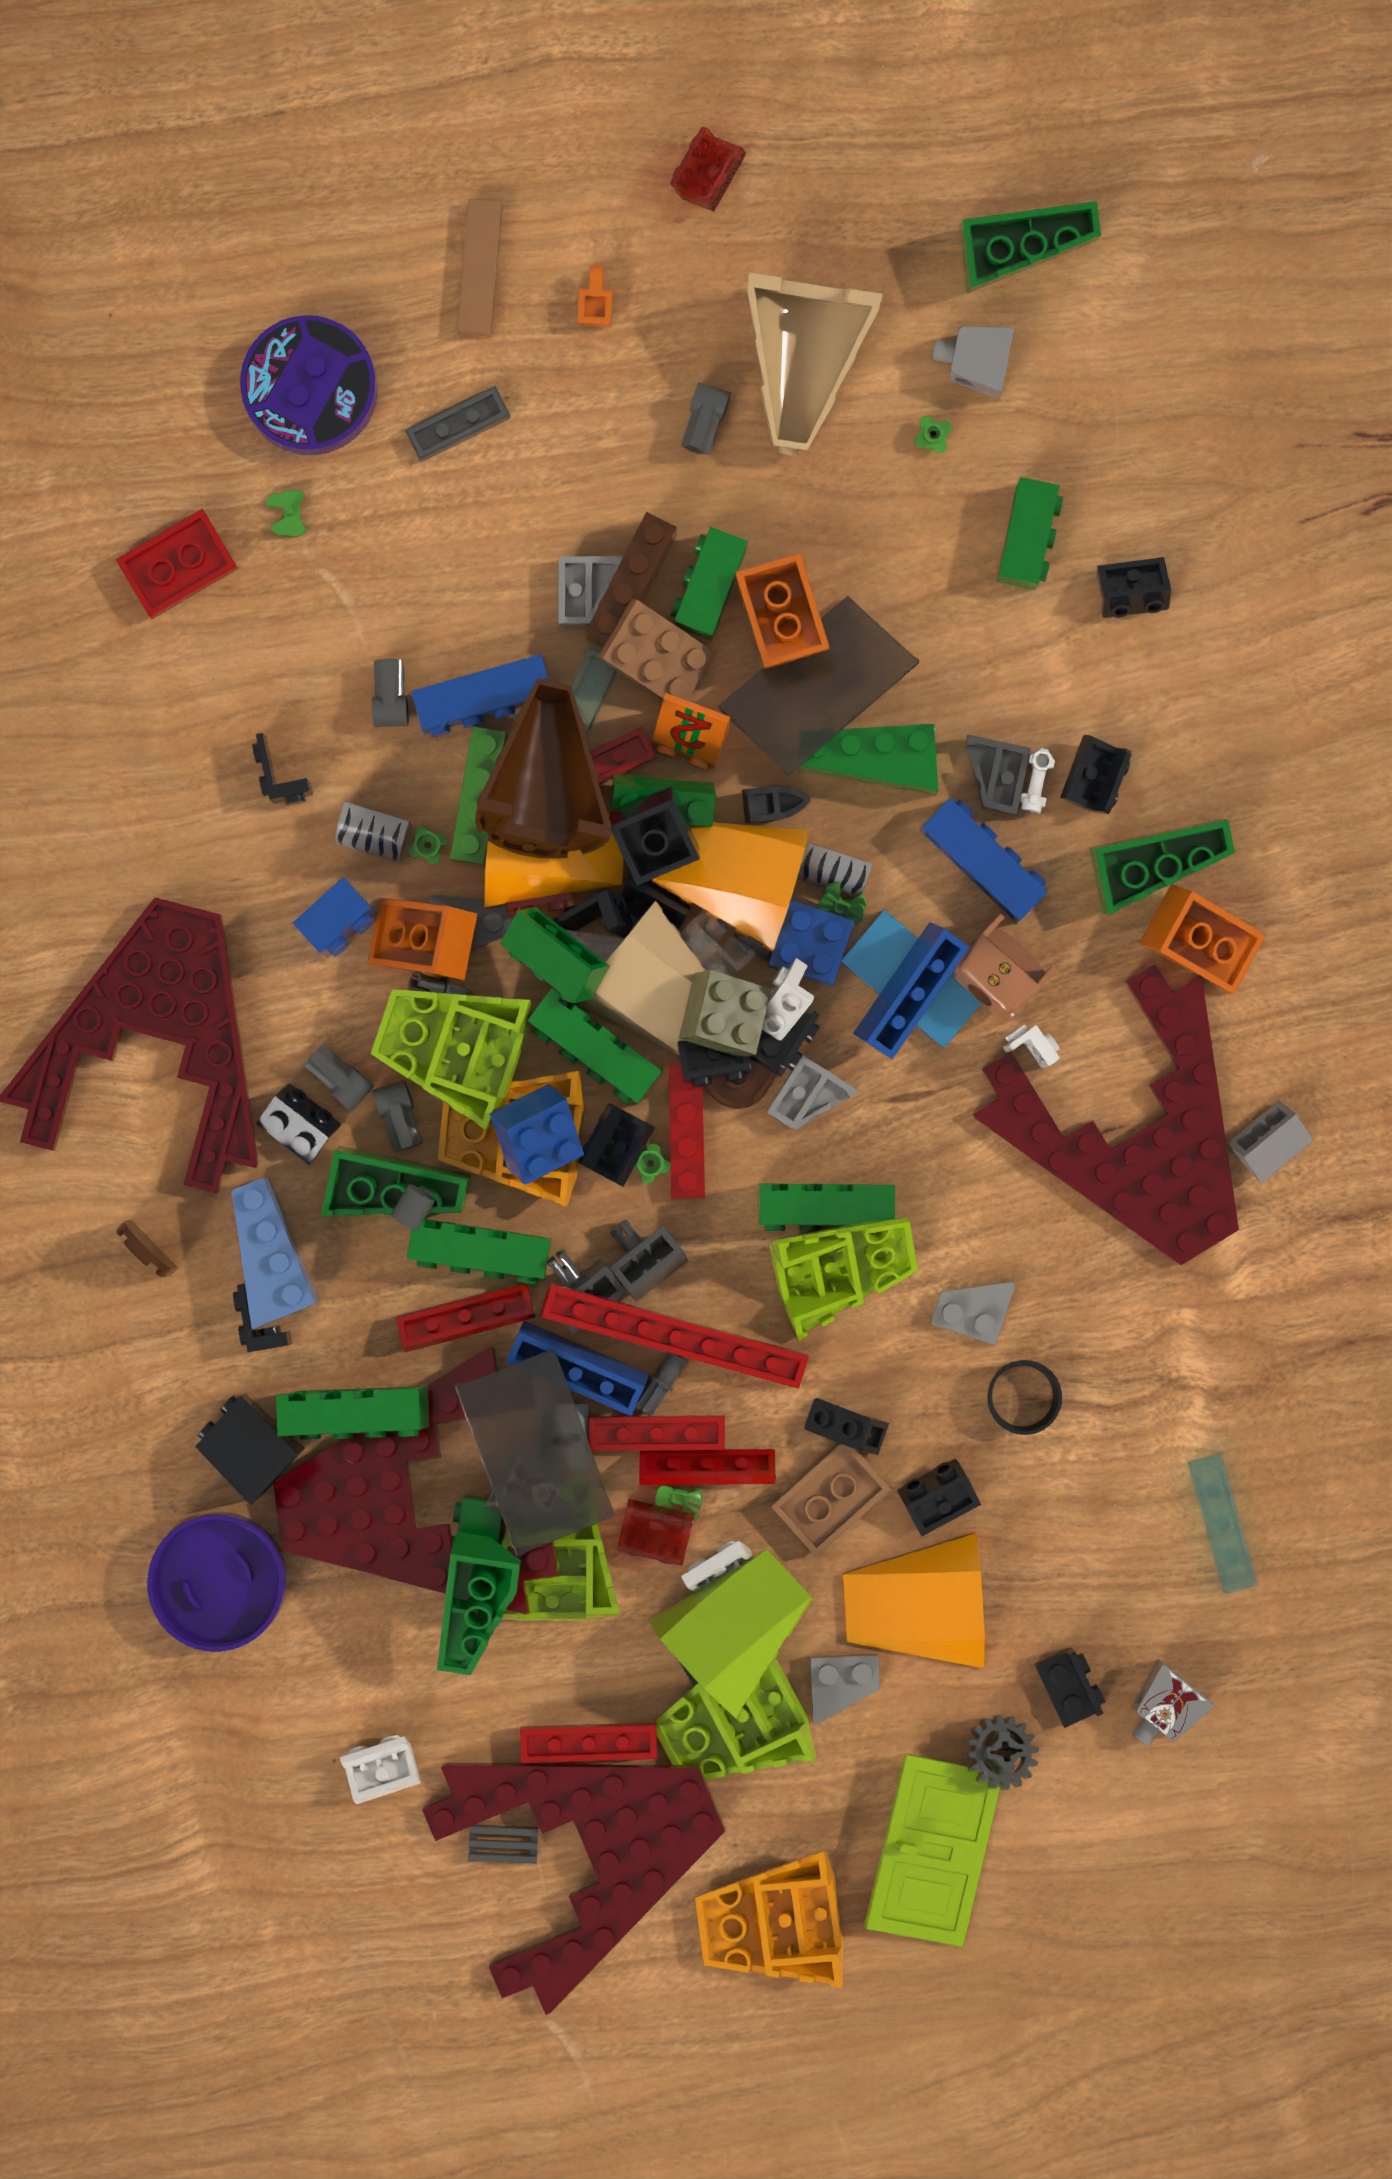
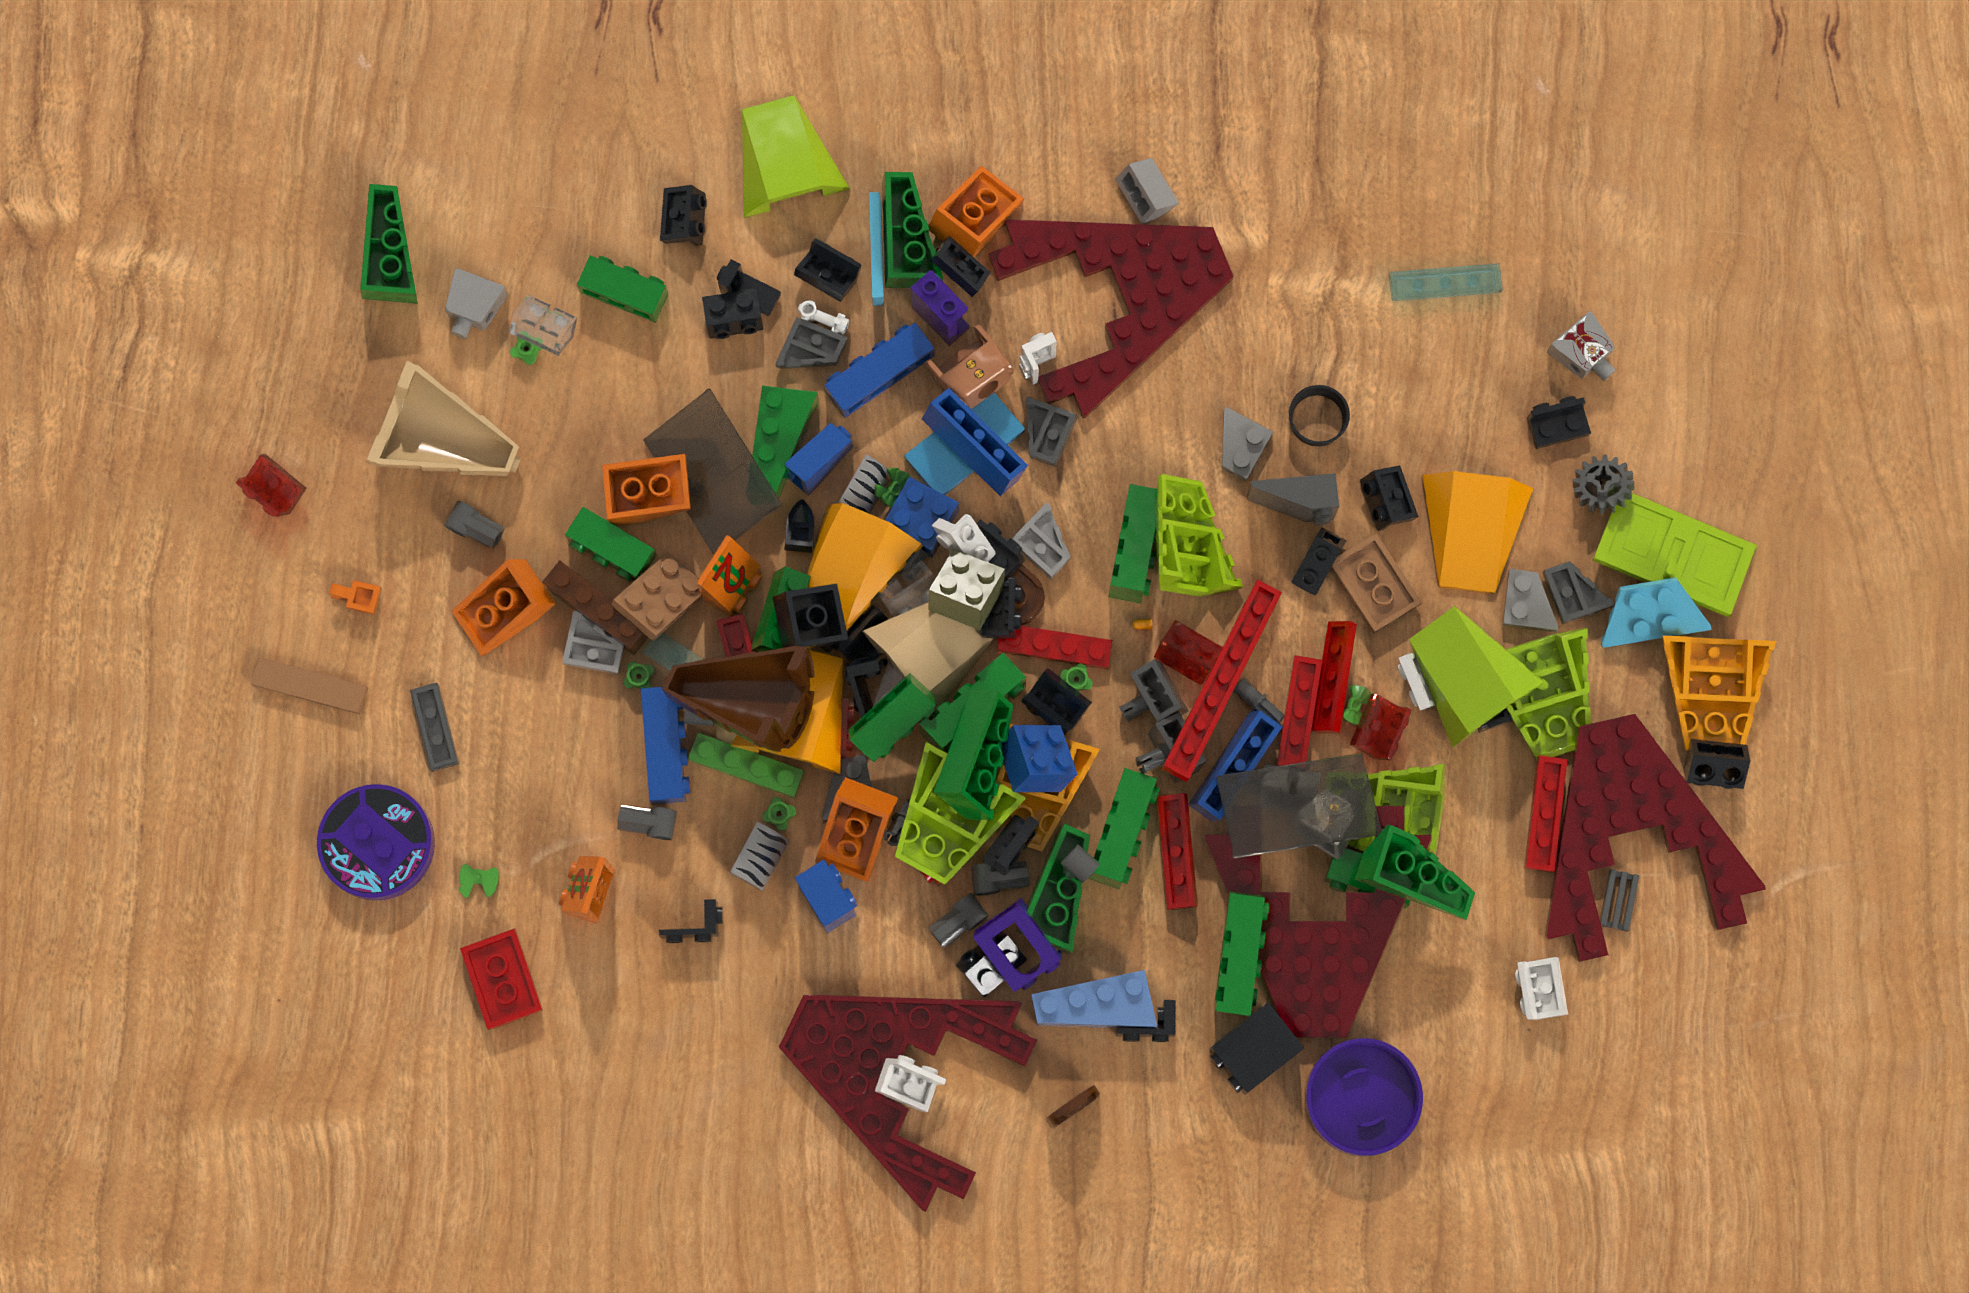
camera: 75 degrees left, 10 degrees down
(137, 1053) = (908, 1082): none -> white bracket
(294, 640) = (587, 888): none -> orange slope
(350, 1143) = (1017, 913): none -> dark purple panel
(434, 1121) = (1011, 843): none -> black bracket
(523, 1061) = (975, 755): none -> green wedge
(567, 642) = (635, 669): none -> bright green plate
(614, 473) = (503, 605): none -> orange slope
(683, 1937) = (1717, 761): none -> black brick
(707, 1290) = (1187, 652): none -> clear red bracket
(732, 1230) = (1141, 624): none -> light orange piece
(852, 1834) = (1652, 611): none -> medium azure wing
(861, 809) = (818, 458): none -> blue slope
(862, 1736) = (1573, 593): none -> dark grey wing
(915, 1397) = (1302, 497): none -> dark grey slope
(946, 1075) = (1048, 430): none -> dark grey wing
(962, 447) = (542, 326): none -> clear piece
(1021, 671) = (732, 313): none -> black bracket
(1055, 683) = (733, 279): none -> black bracket
(1070, 918) = (939, 307): none -> dark purple panel
(1127, 933) = (960, 266): none -> black bracket
(1135, 828) = (876, 249): none -> medium azure tile
(1232, 694) = (783, 156): none -> lime wedge

